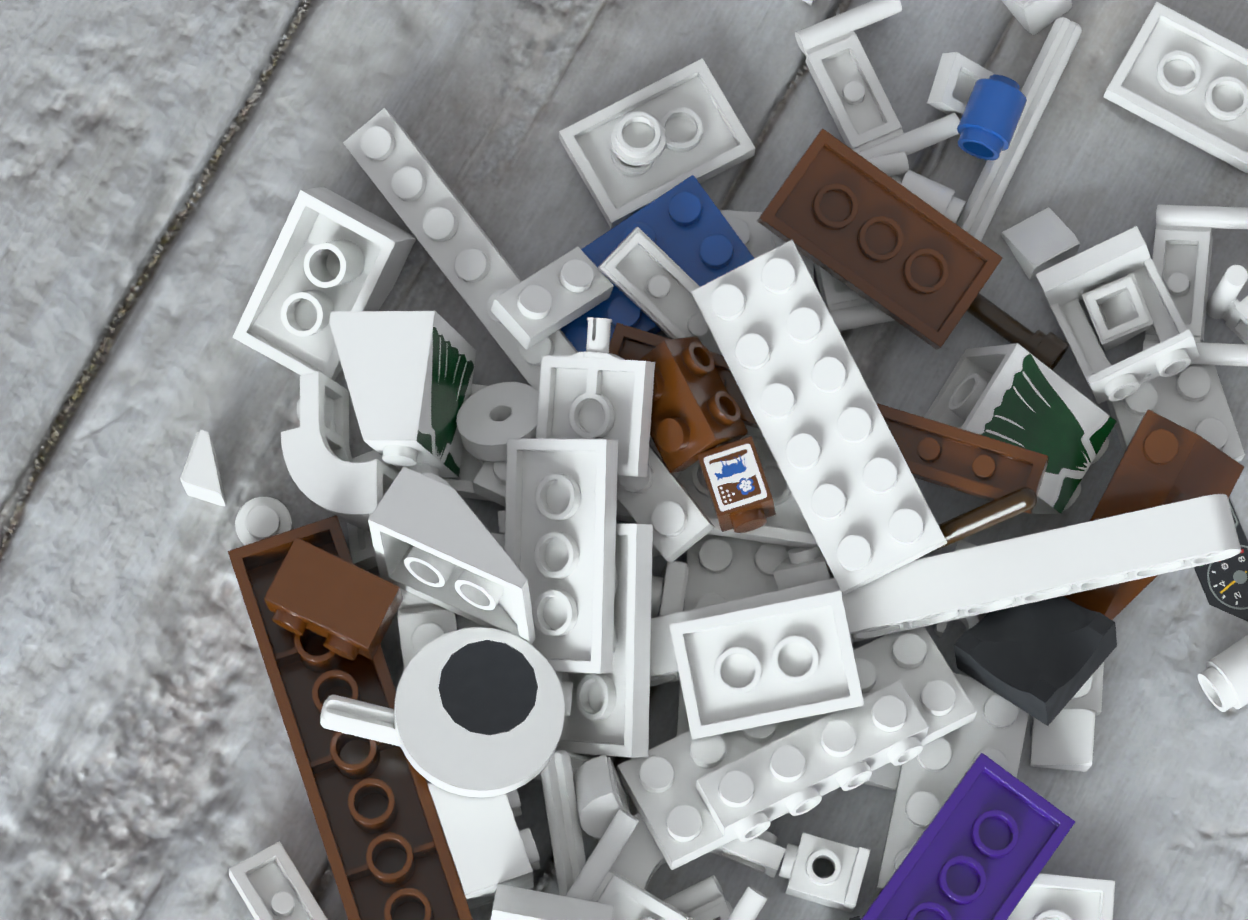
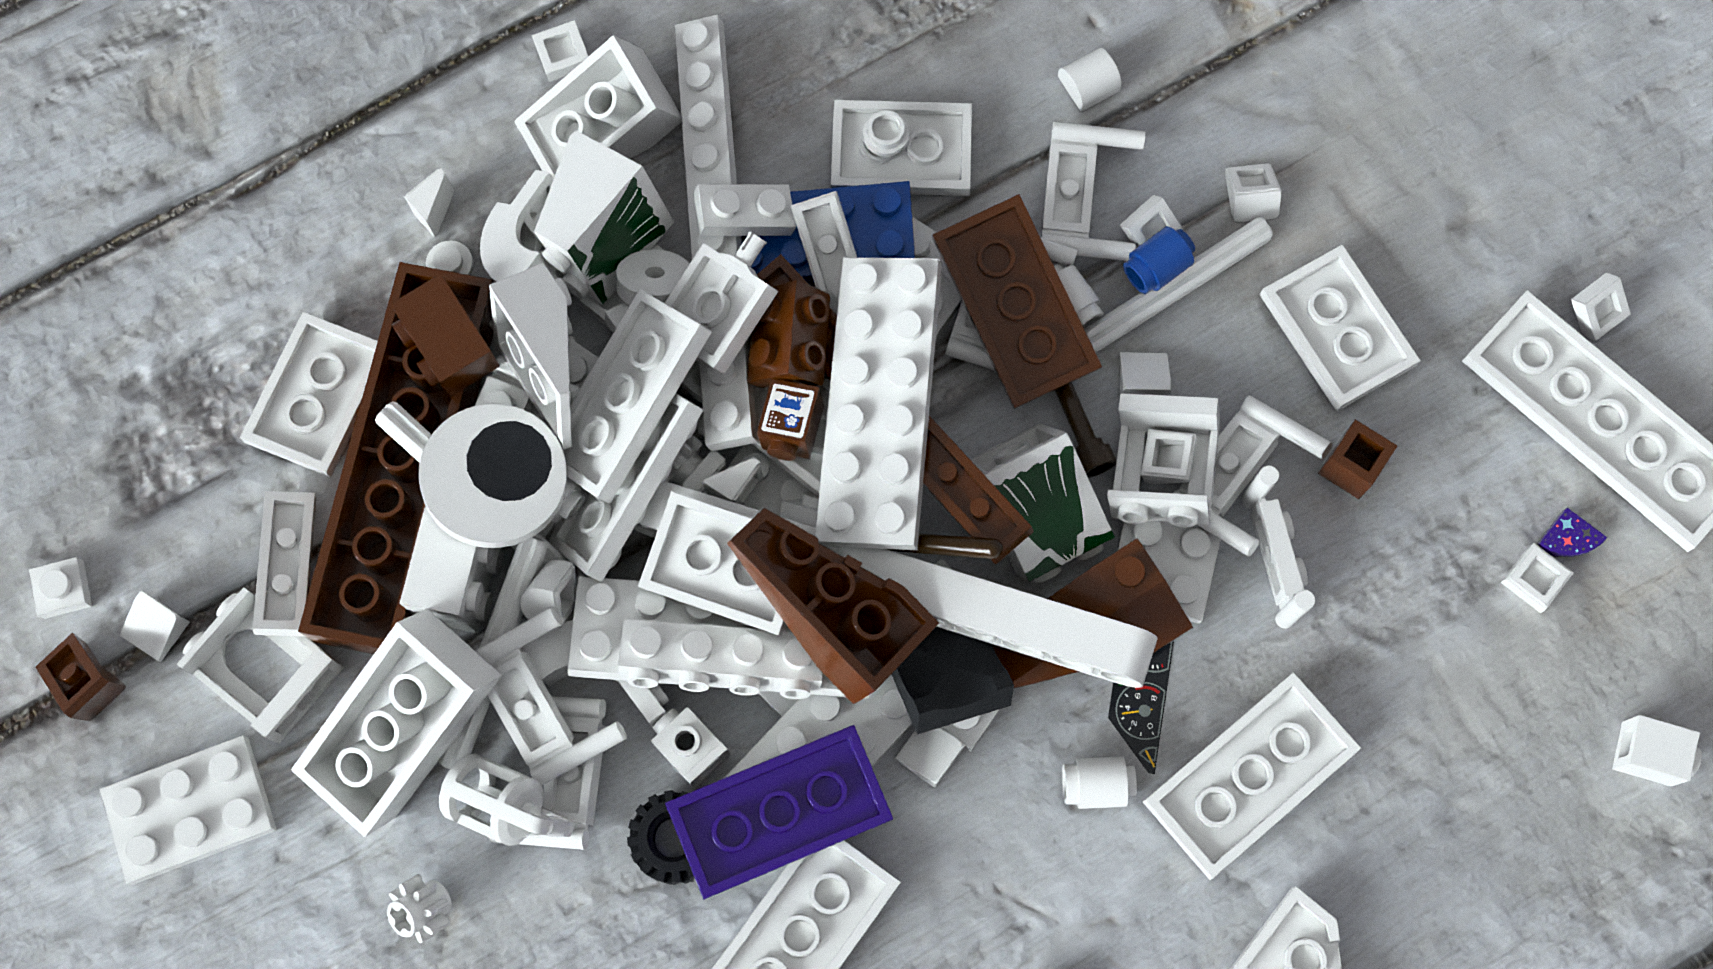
camera: 35 degrees right, 0 degrees up
(212, 739) = (312, 395): none -> white plate
(238, 235) = (560, 50): none -> white plate
(714, 582) = (735, 482): none -> white slope
(915, 648) = (838, 611): none -> reddish brown wedge

